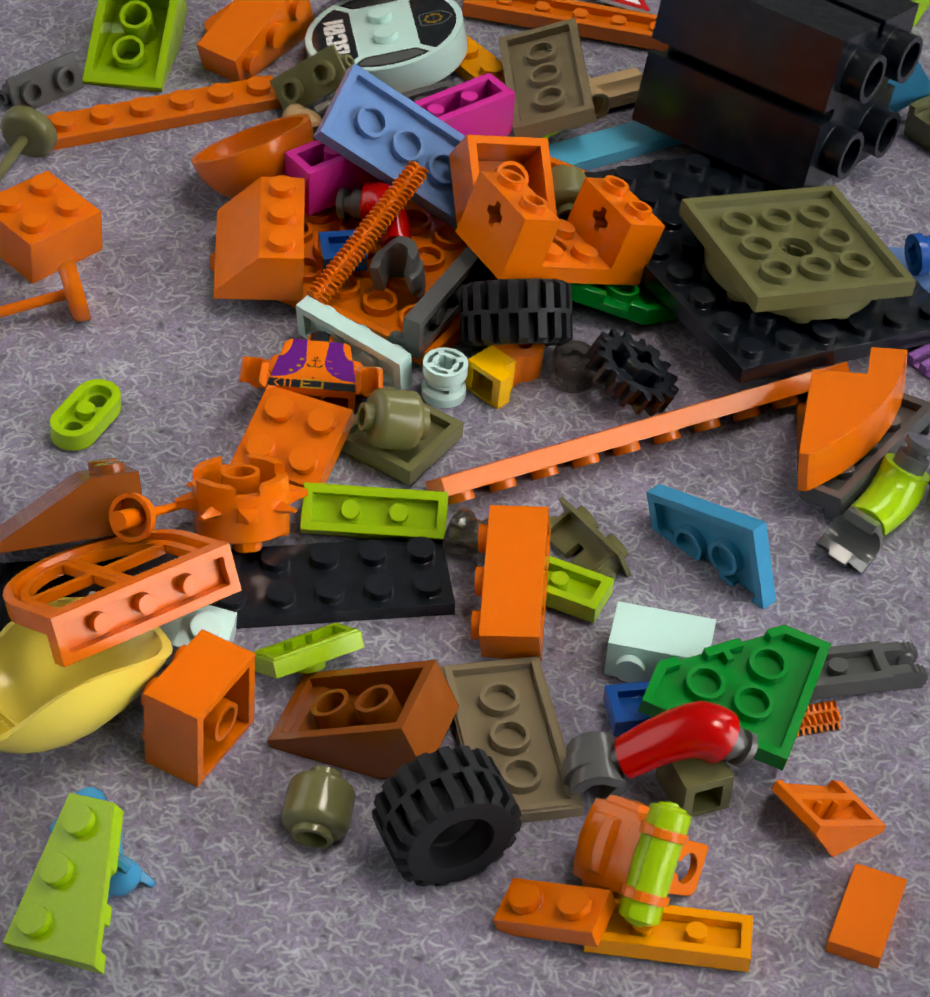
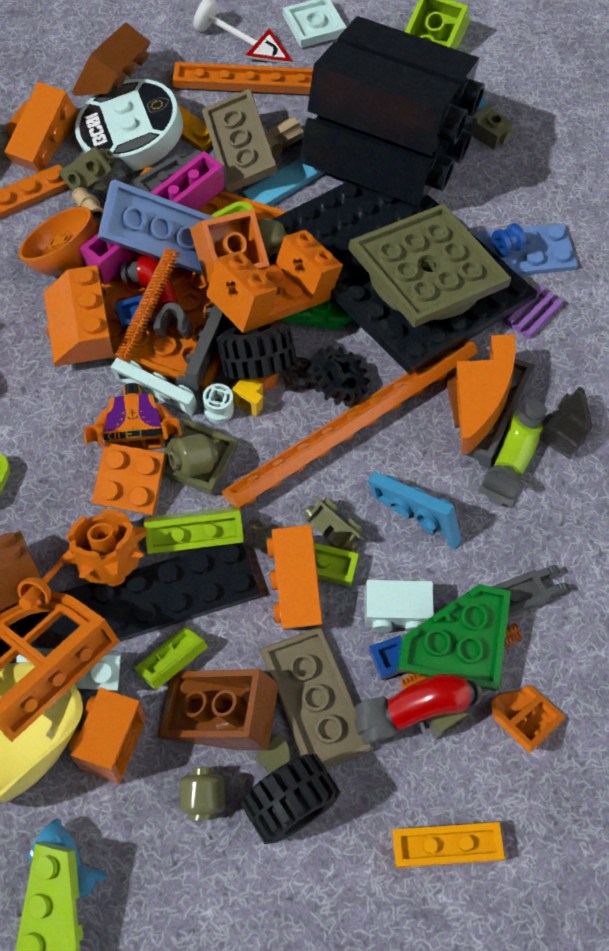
camera: 10 degrees left, 20 degrees up
(555, 912) = (373, 849): orange plate -> none
(636, 855) = (420, 801): orange piece -> none
(866, 915) = (567, 796): orange tile -> none

